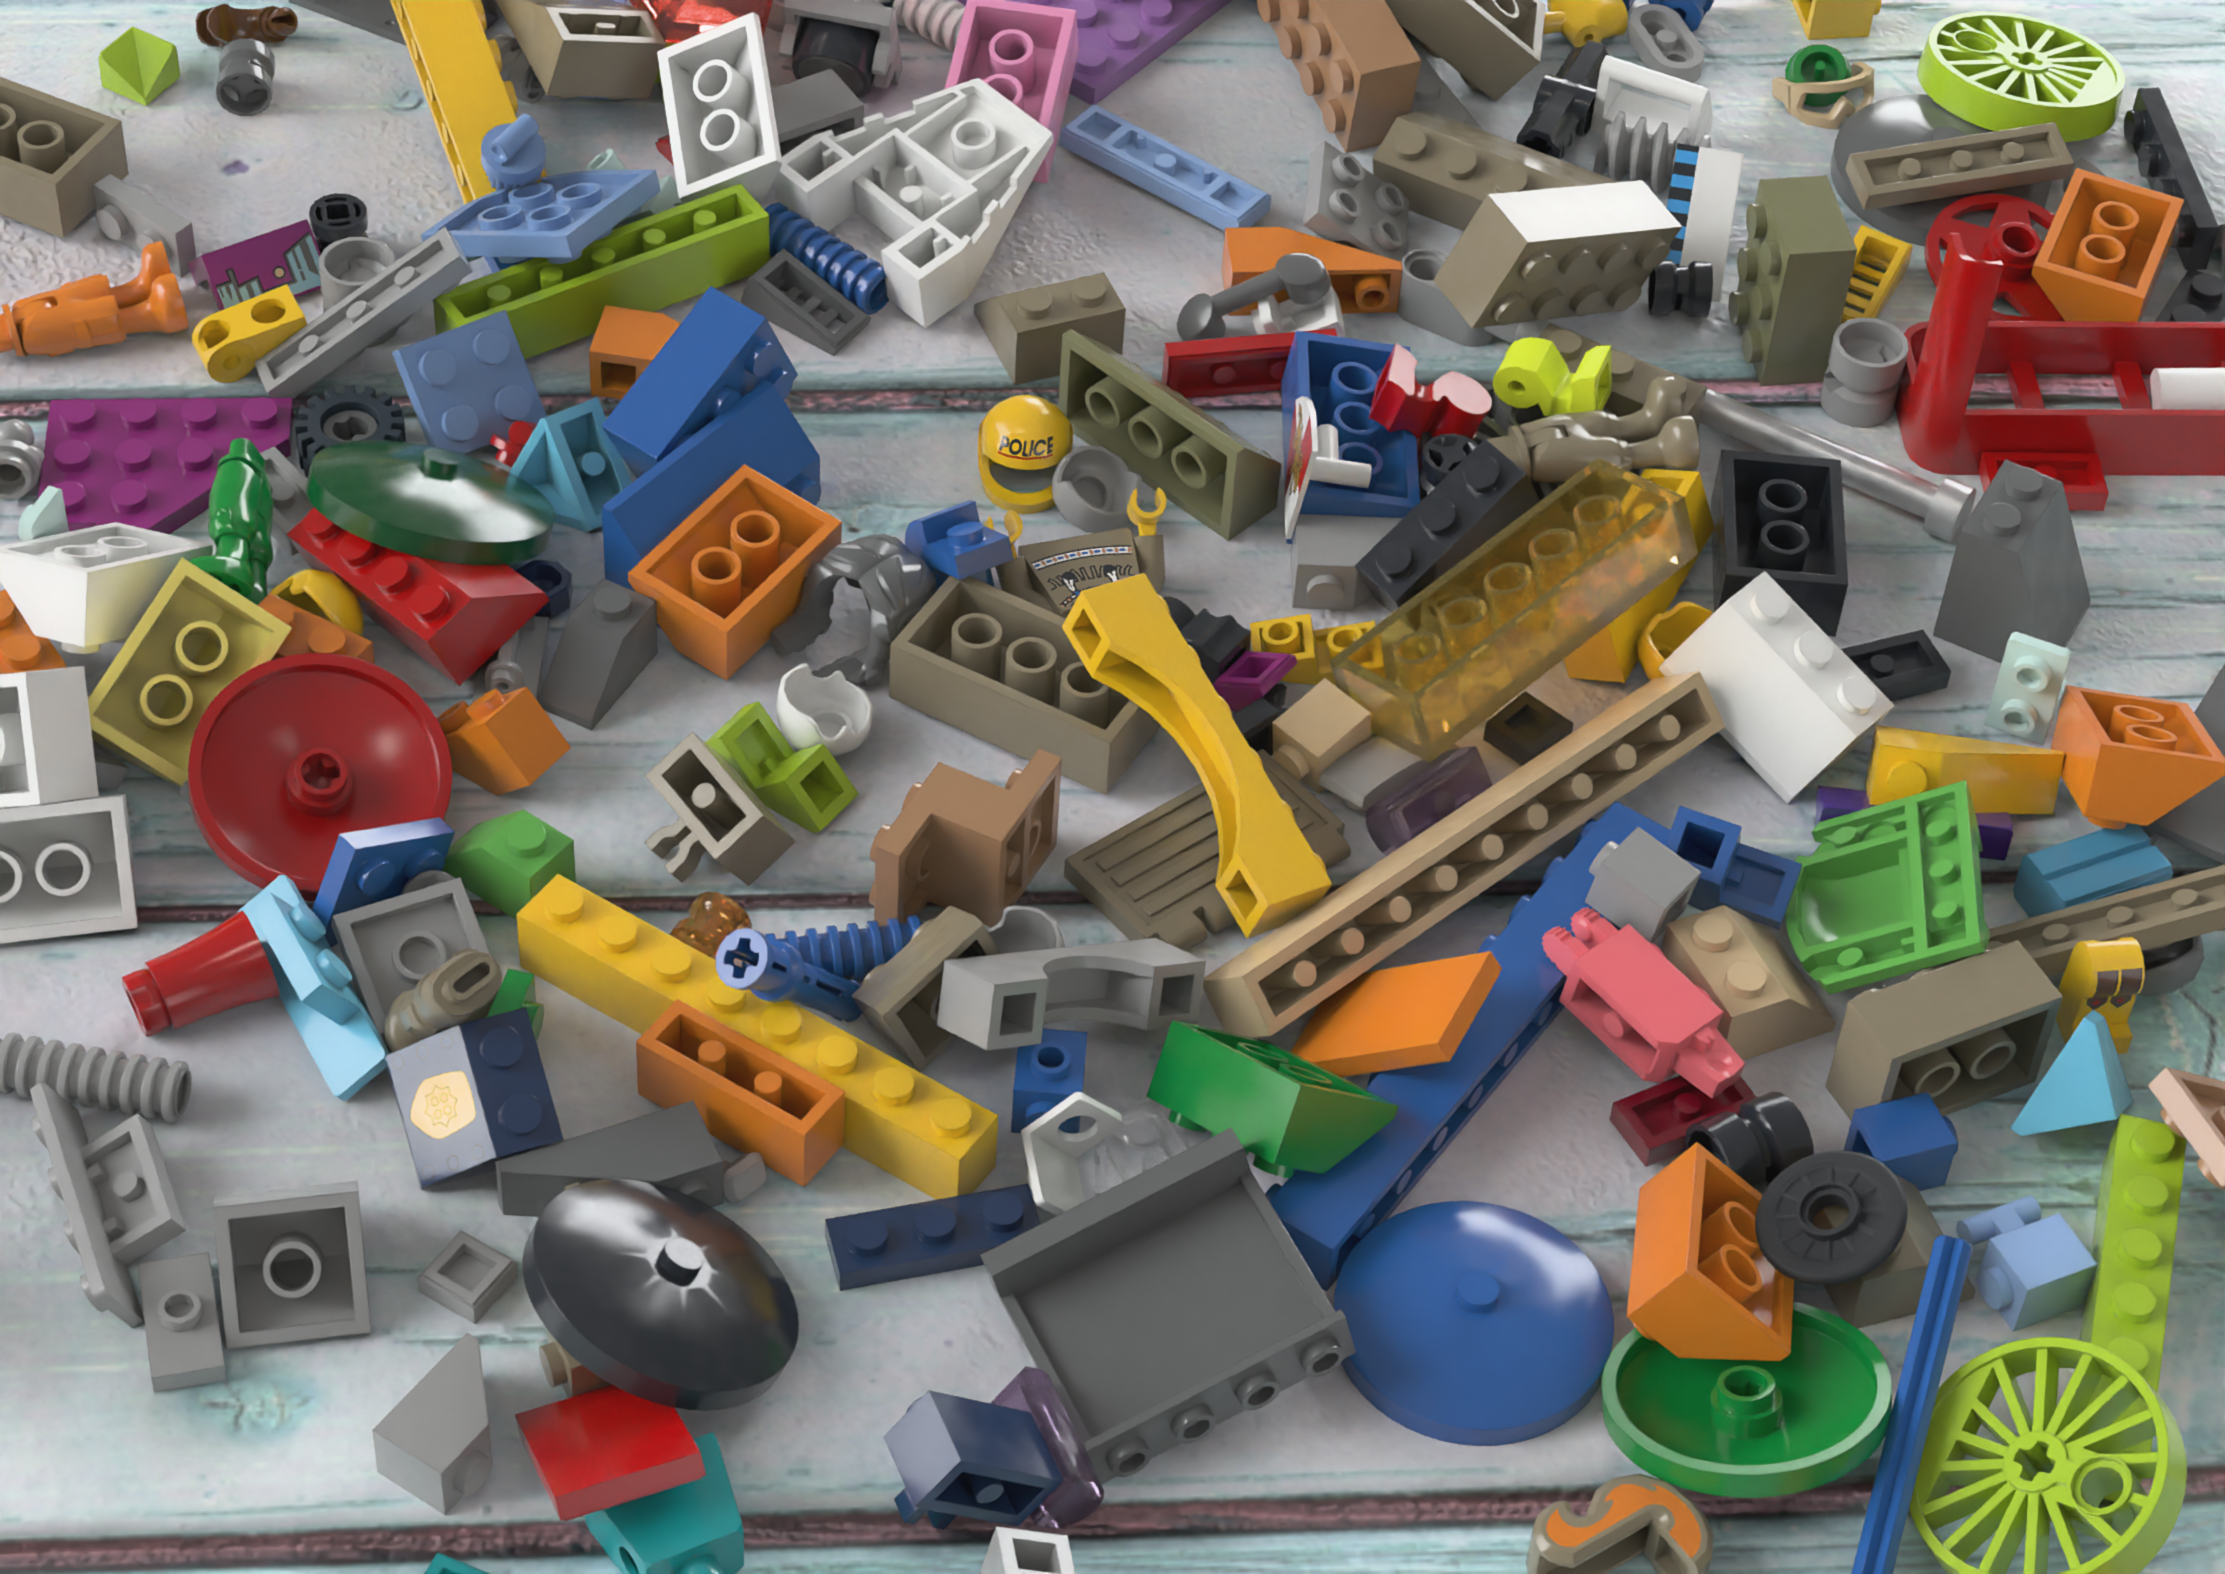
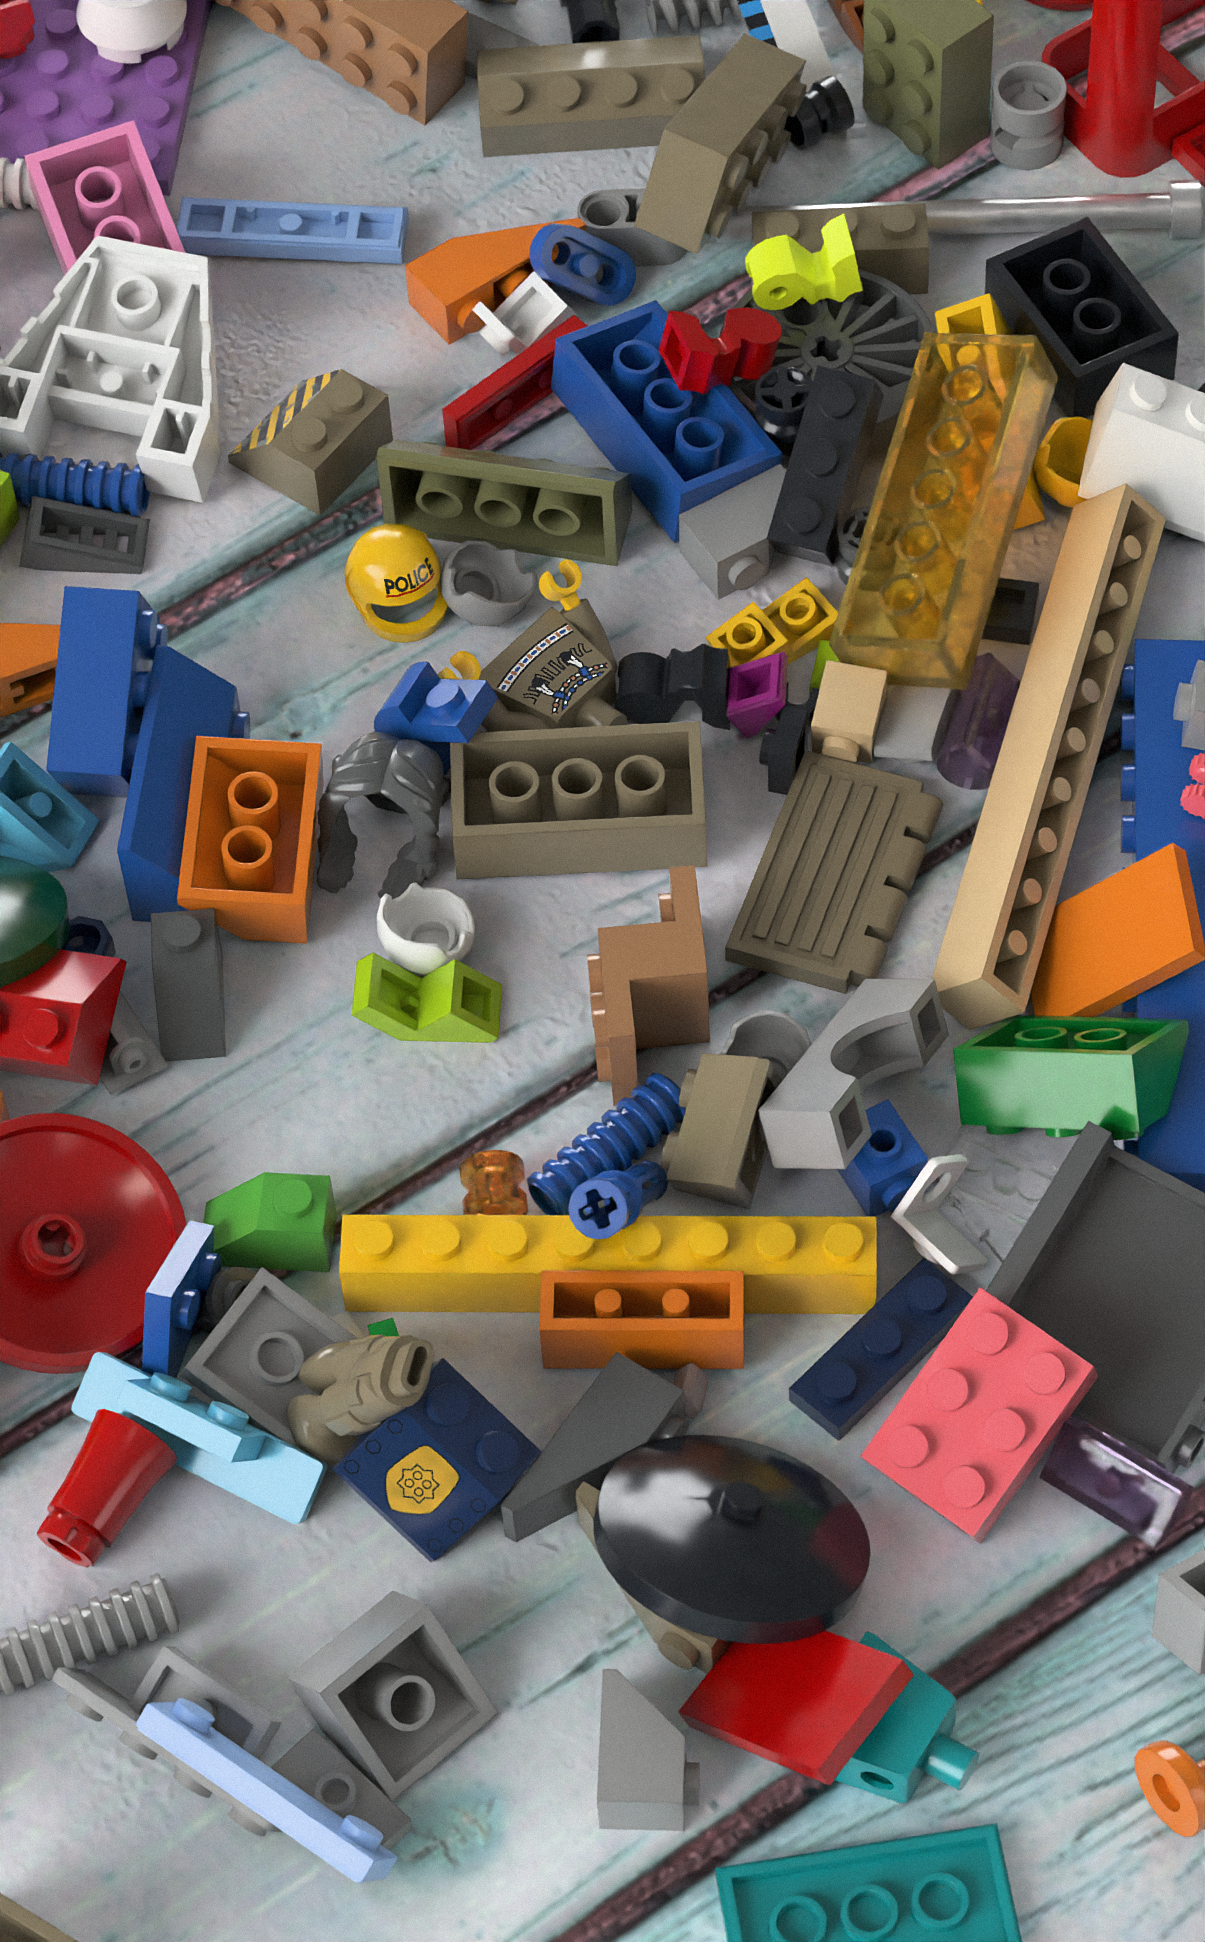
camera: 25 degrees left, 10 degrees up
(134, 1322) = (344, 1843): none -> light blue plate
(467, 1276) = (537, 1615): light grey tile -> none
(502, 740) = (177, 1113): orange slope -> none
(714, 815) = (417, 1074): dark tan brick -> none
(952, 1313) = (980, 1415): none -> coral brick
(970, 1461) = (1086, 1530): dark blue brick -> none
(1137, 649) = (682, 728): yellow arch -> none
(1298, 273) = (510, 281): dark grey bar -> none
(1315, 457) = (666, 461): shield -> none
(1354, 205) = (494, 183): light grey plate -> none
(1376, 296) = (578, 263): none -> blue plate
(1568, 442) = (873, 317): dark tan piece -> none

